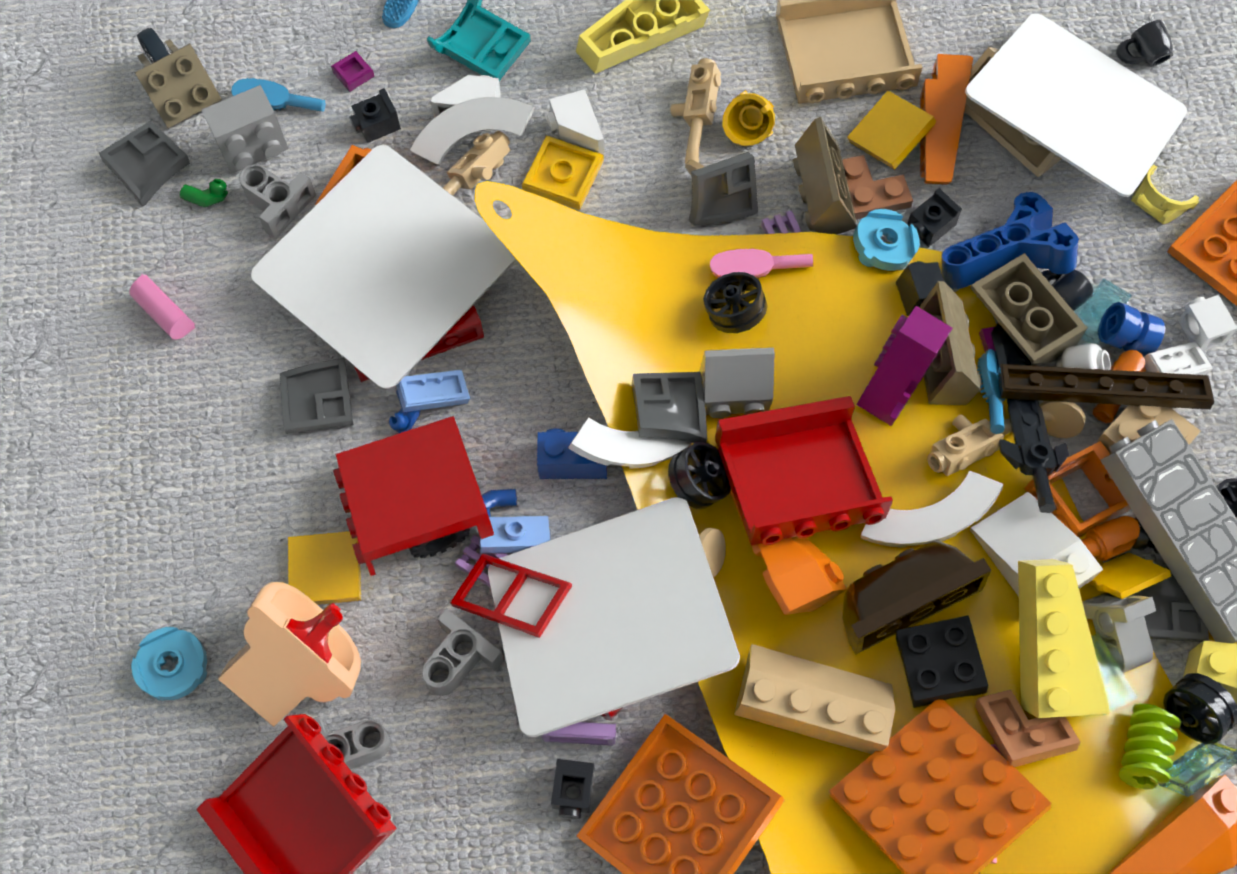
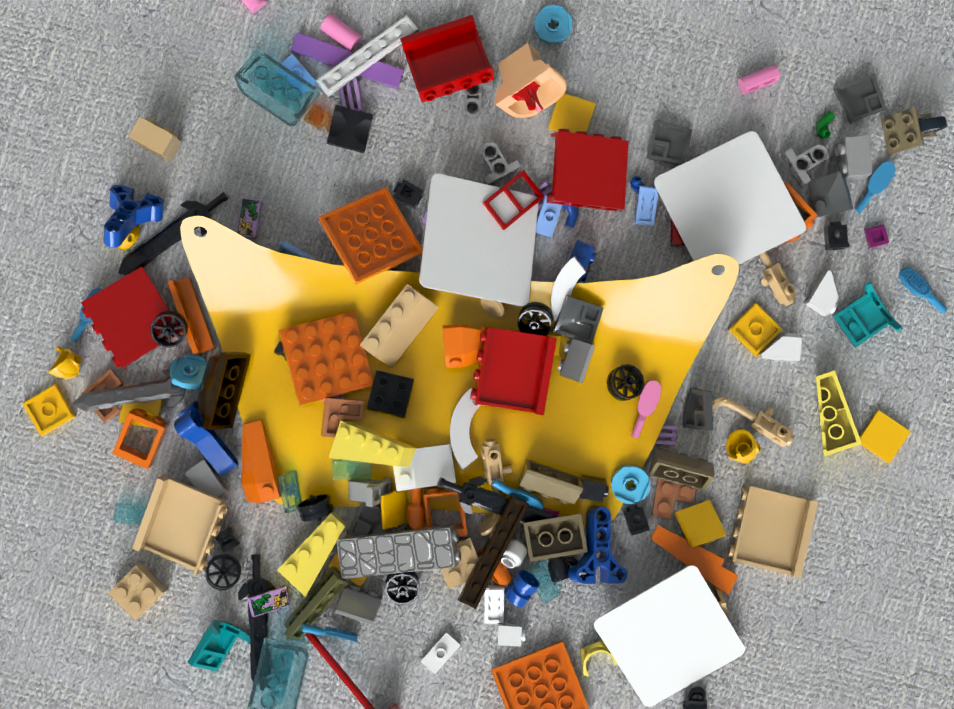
camera: 115 degrees right, 20 degrees up
(312, 141) = (830, 194): none -> dark grey plate
(467, 118) = (807, 287): white tile -> none
(903, 363) = (543, 446): magenta wedge -> none
(909, 591) = (429, 393): dark brown windscreen -> none
(1149, 746) = (307, 471): lime piece -> none

